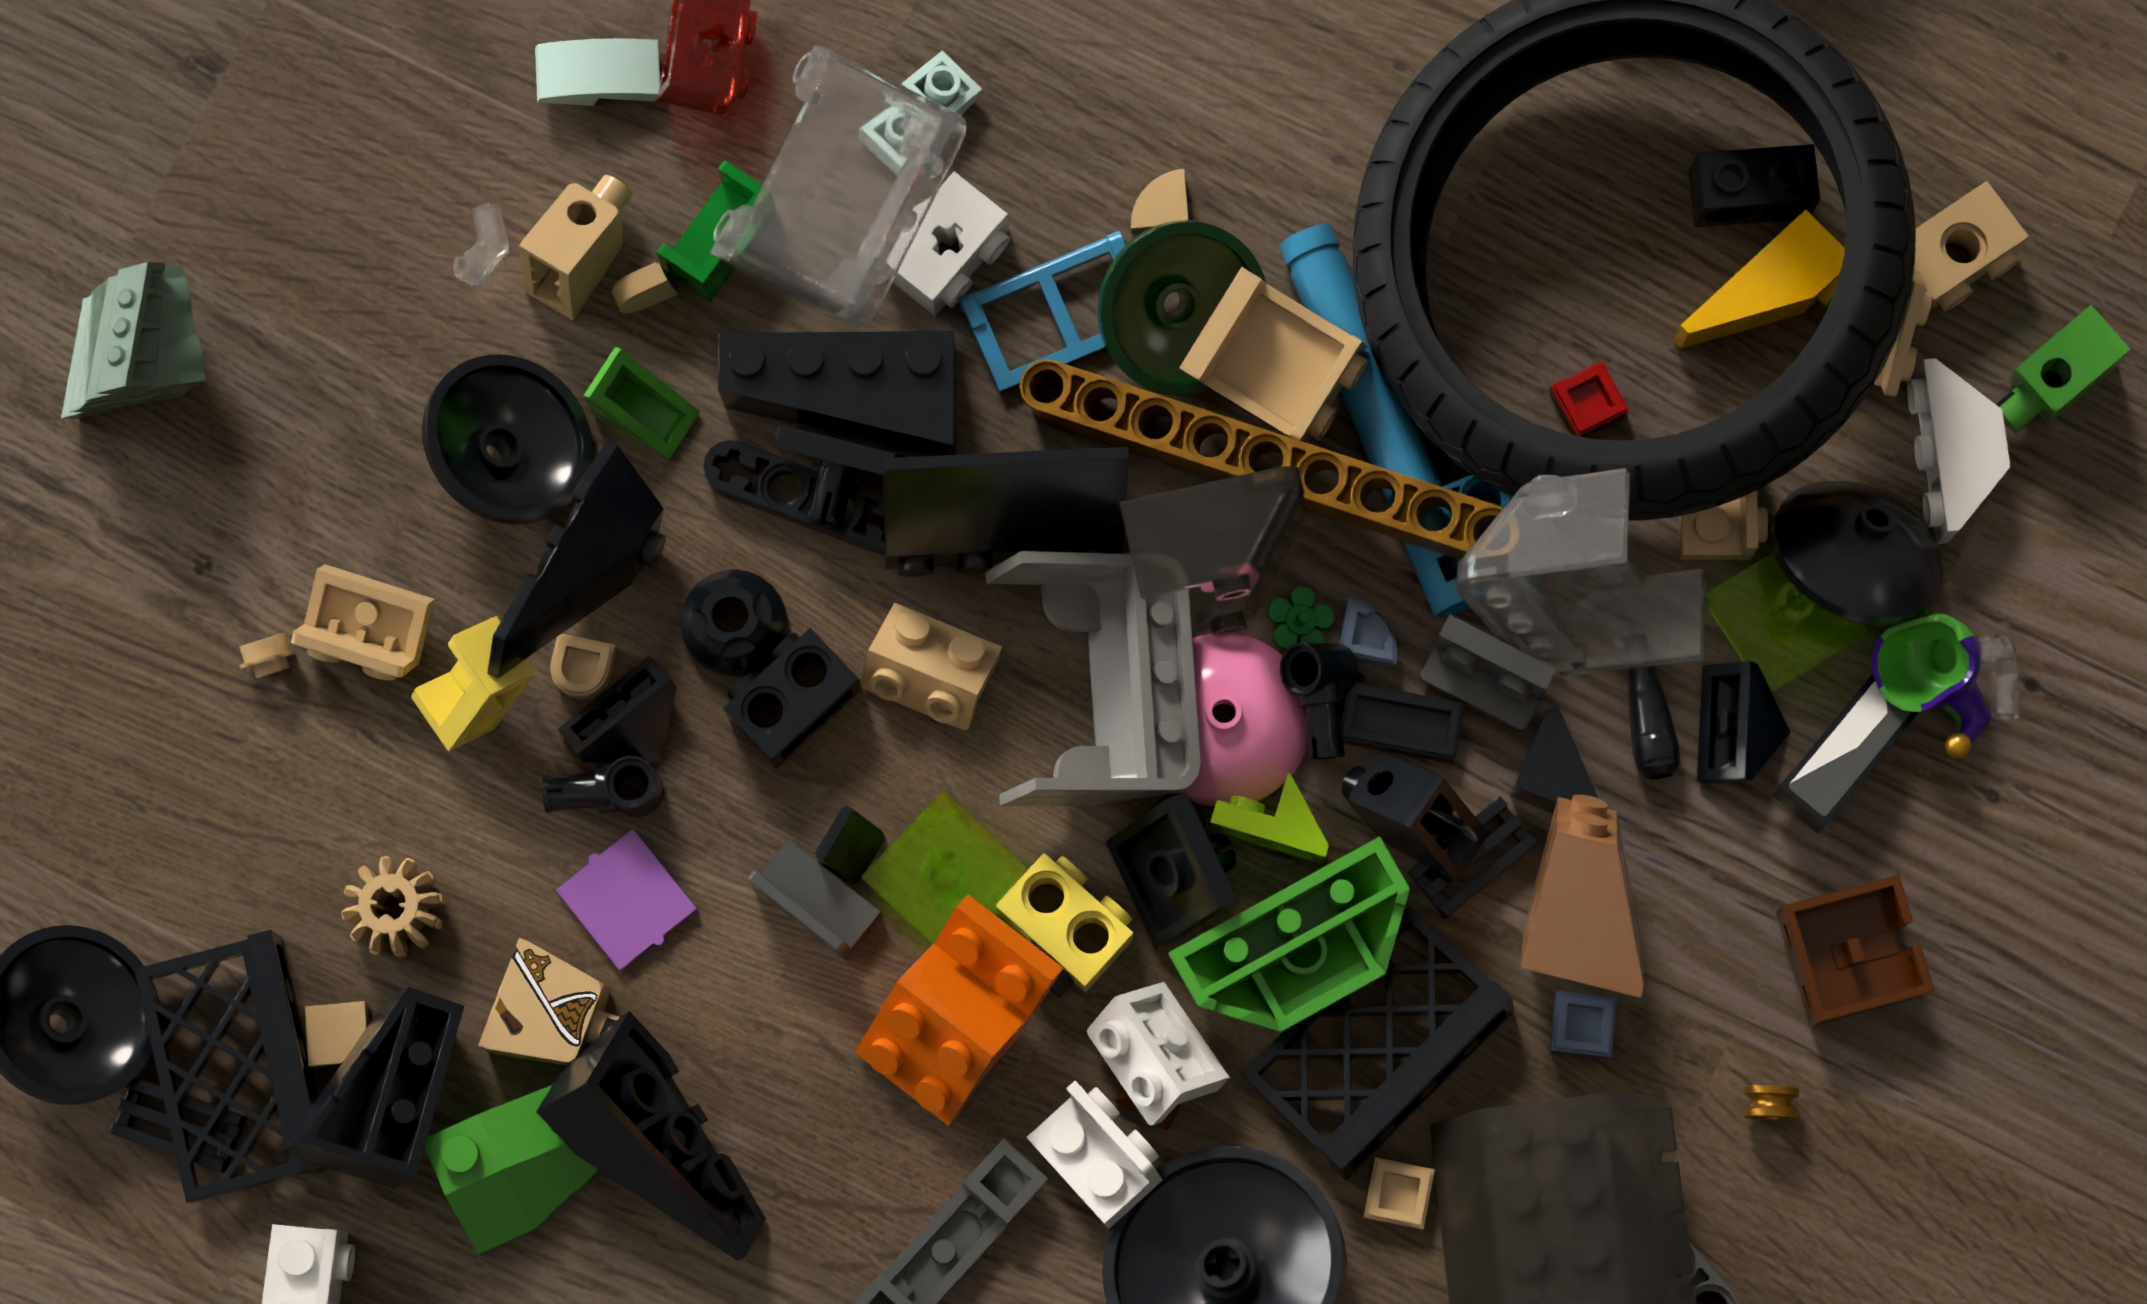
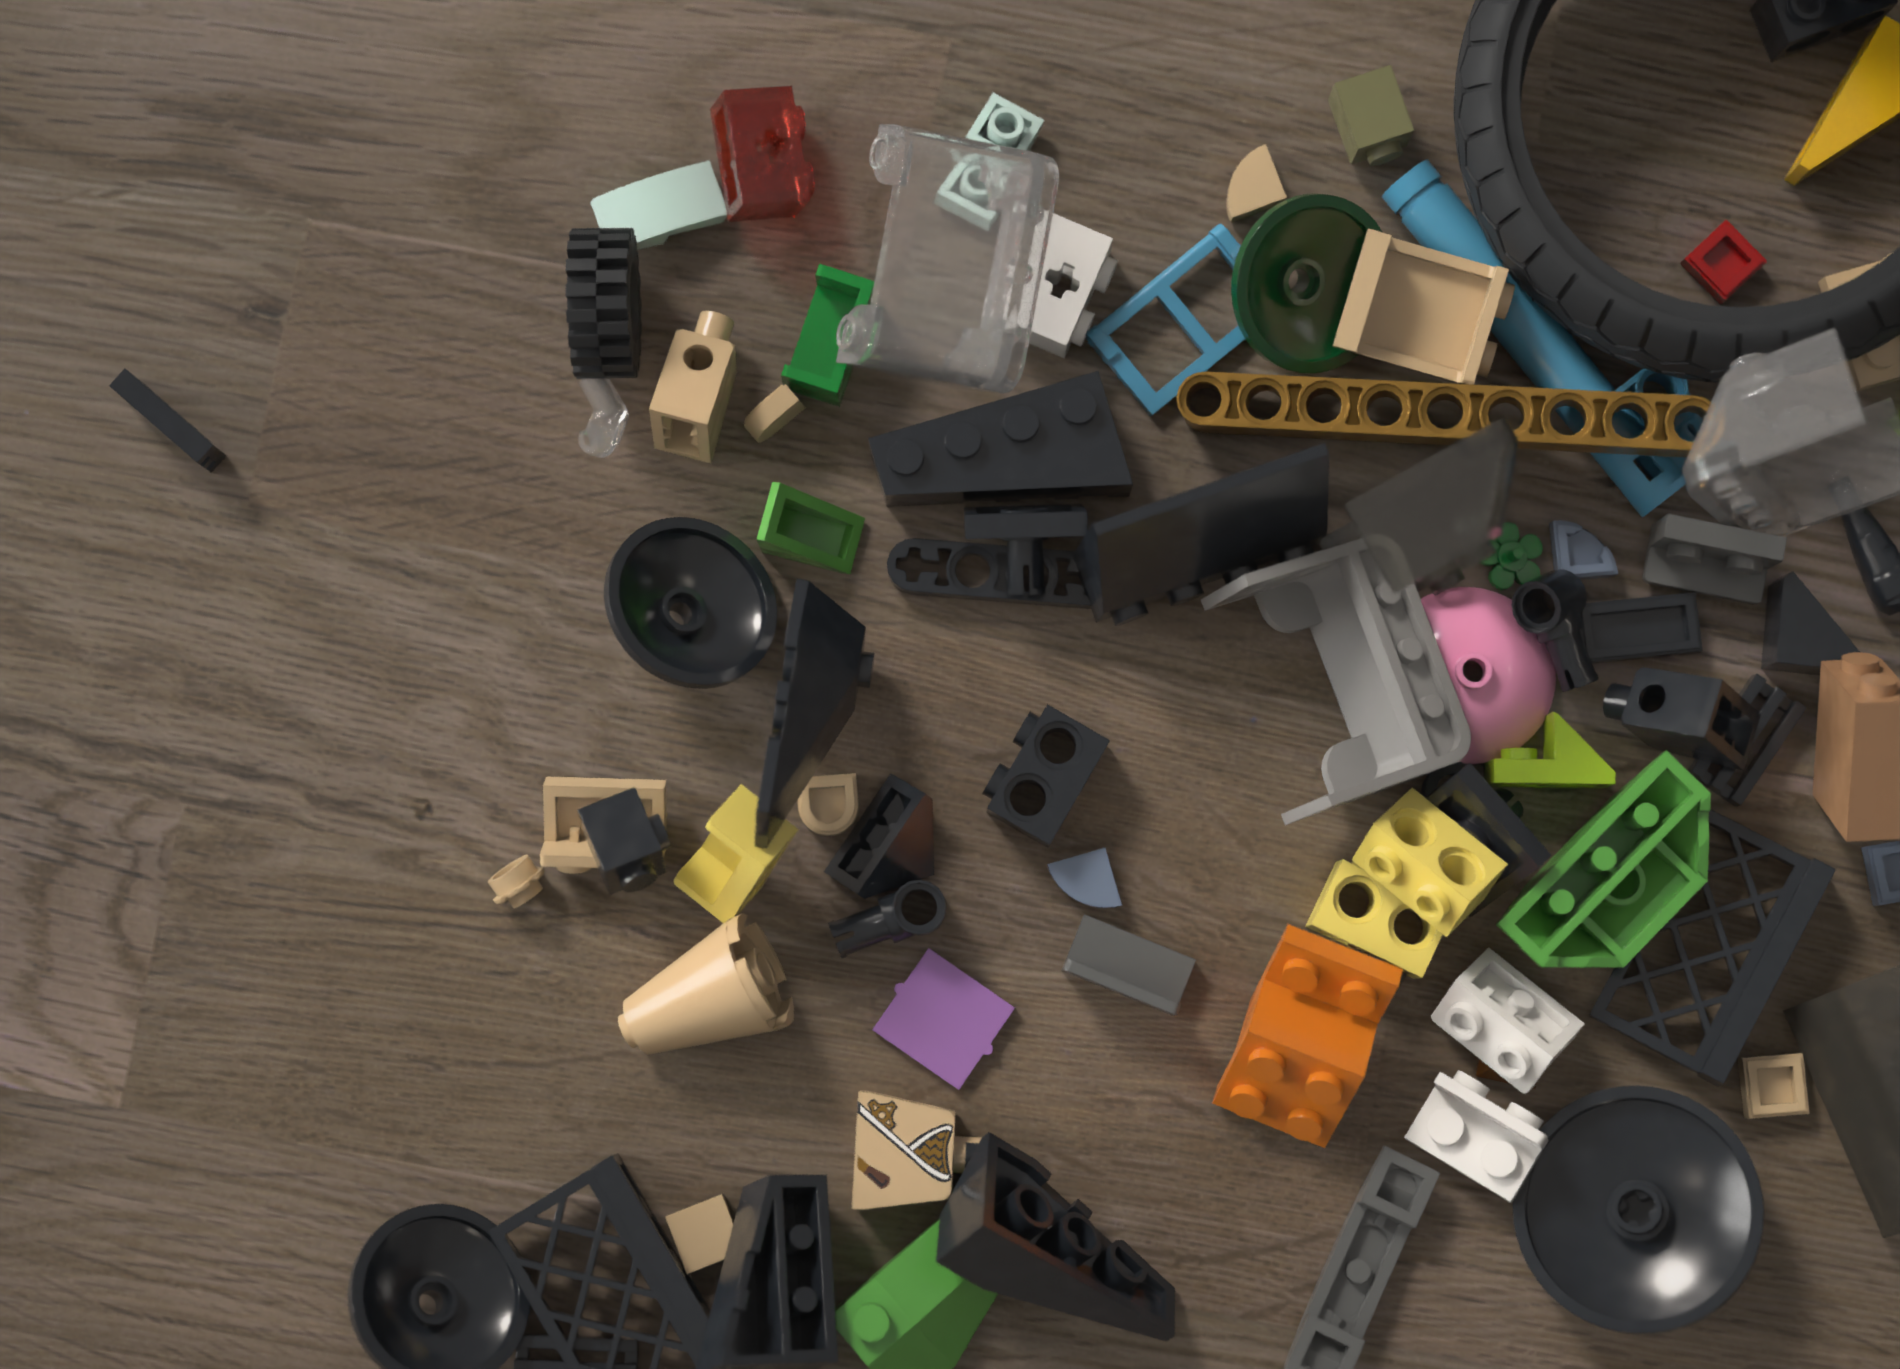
camera: 20 degrees left, 5 degrees up
(81, 138) = (167, 420): none -> black tile
(134, 342) = (290, 612): sand green slope -> none
(372, 638) = (625, 841): none -> black brick
(385, 929) = (725, 1114): tan gear -> none
(413, 807) = (710, 993): none -> tan cone
(512, 140) = (603, 303): none -> black tyre
(741, 650) = (970, 748): black piece -> none
(802, 806) = (1087, 879): none -> sand blue tile
(849, 845) = (1146, 903): black slope -> none
(929, 666) = (1170, 705): tan bracket -> none
(939, 864) = (1244, 901): clear neon green tile -> none
(1122, 877) = (1429, 862): none -> light yellow brick
(1289, 169) = (1371, 116): none -> olive brick

